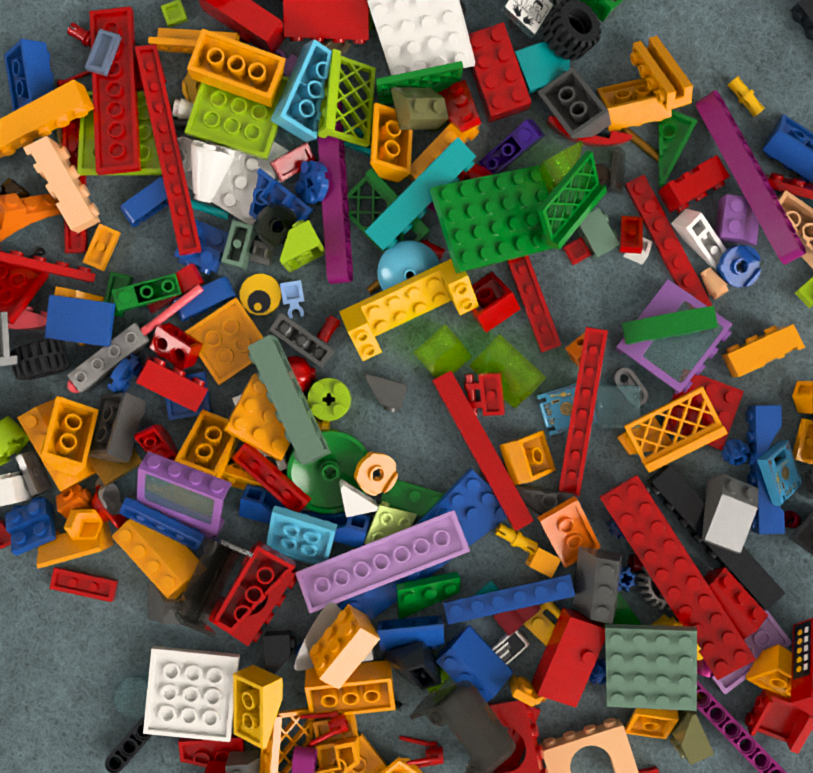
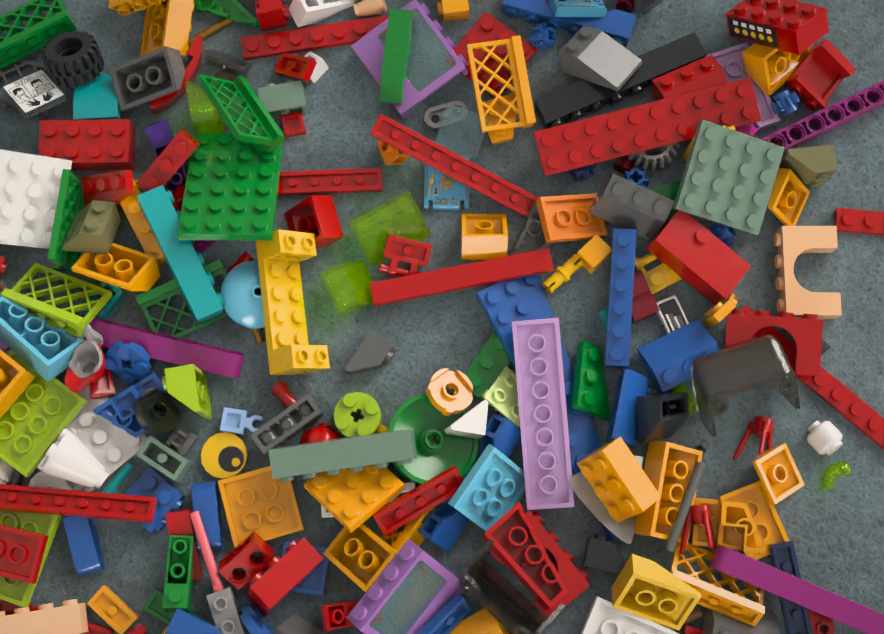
camera: 70 degrees left, 10 degrees down
(296, 148) = (86, 363): none -> light grey hair
(340, 709) = (684, 507): none -> dark grey bar
(501, 153) = (168, 161): none -> red arch
(743, 695) = (785, 102): none -> blue gear

